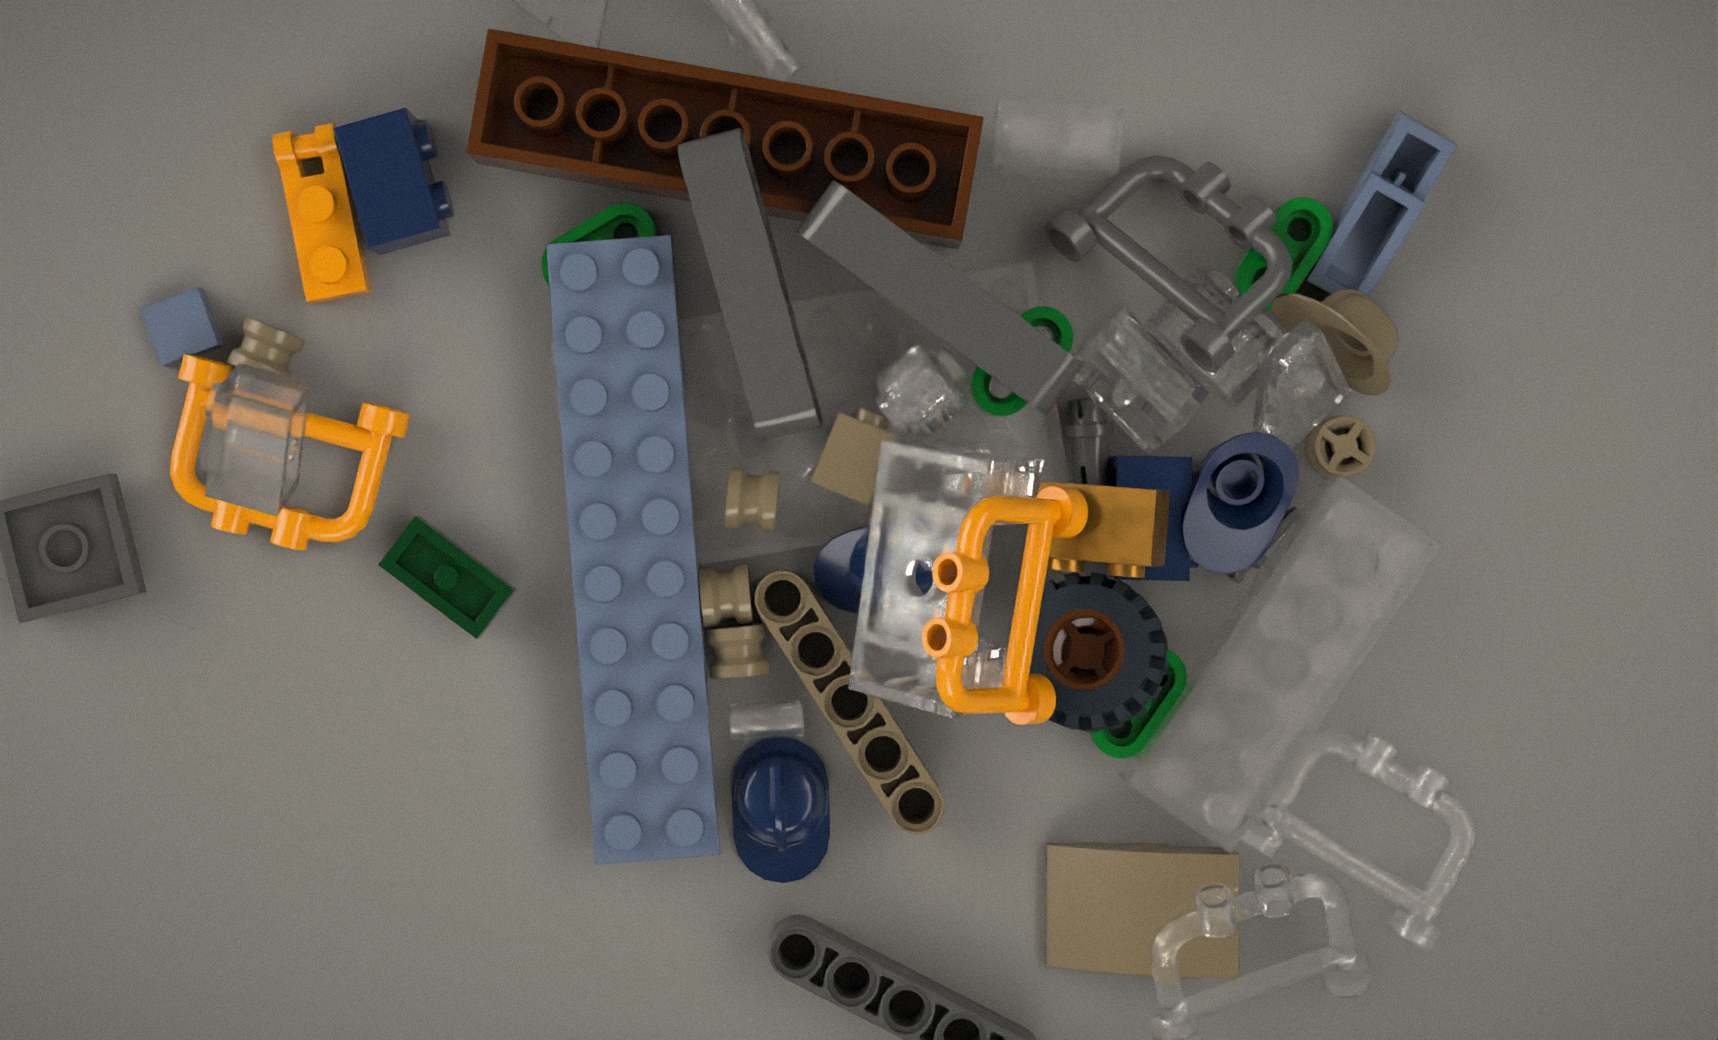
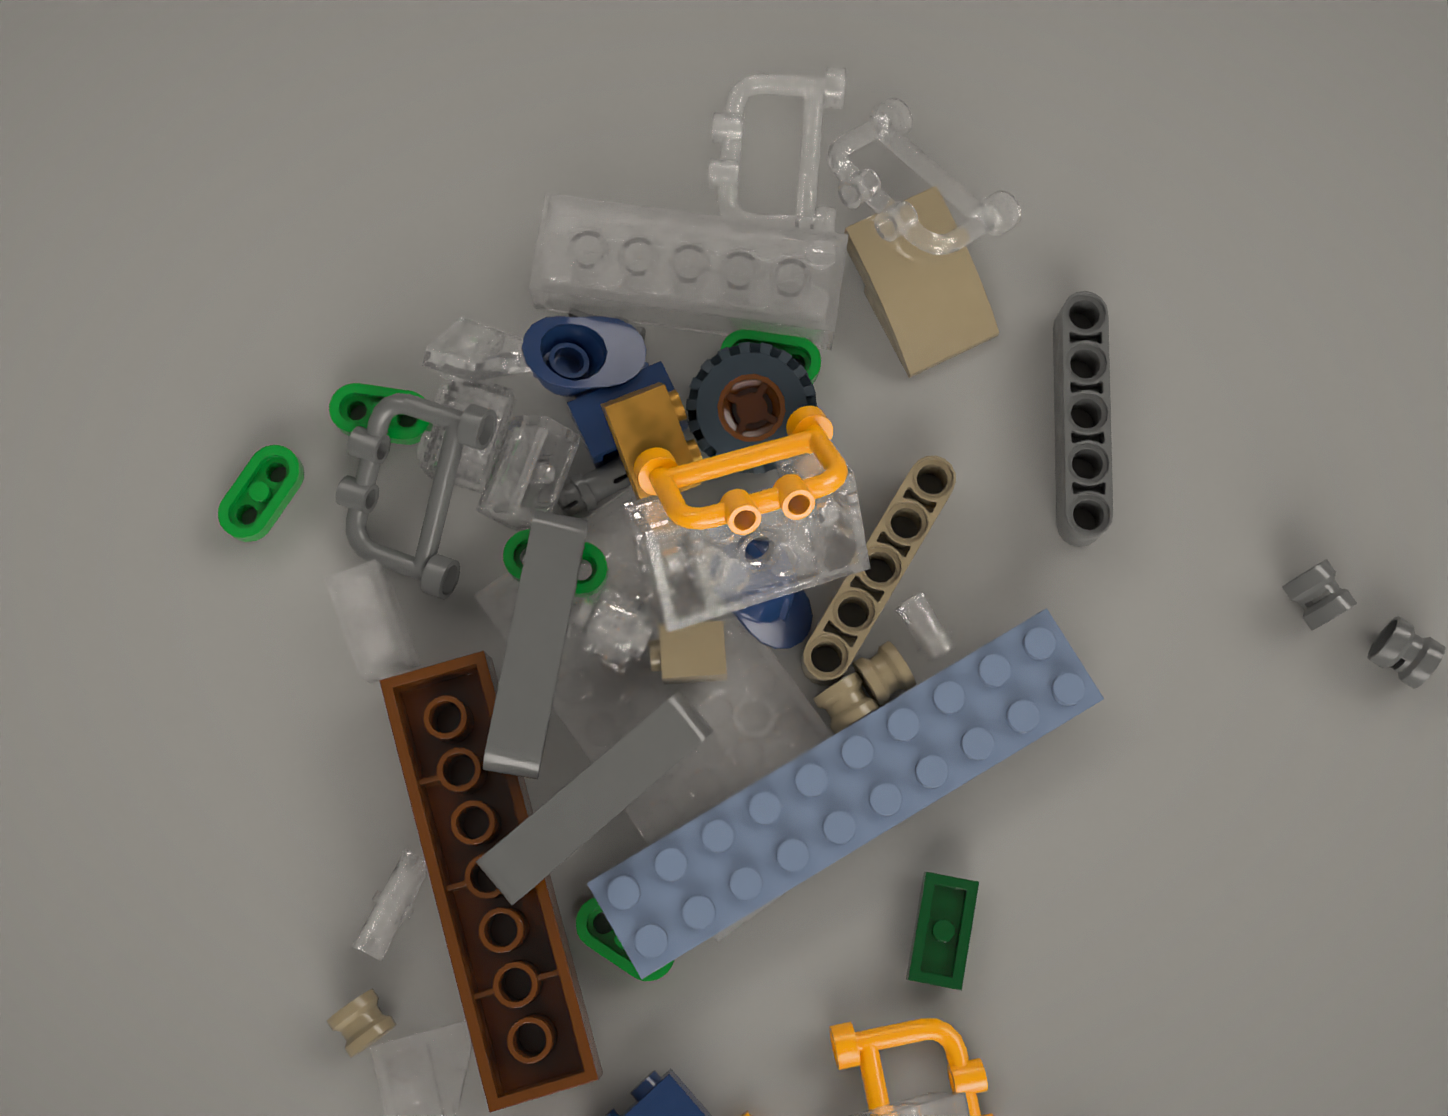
camera: 120 degrees left, 10 degrees down
(752, 499) = (762, 715): dark tan wheel -> none
(781, 809) = (987, 584): dark blue piece -> none
(1263, 84) = (257, 491): none -> green plate
(1351, 451) = (505, 292): dark tan wheel -> none
(1355, 329) = (412, 327): dark tan piece -> none
(1382, 206) = (312, 357): sand blue slope -> none

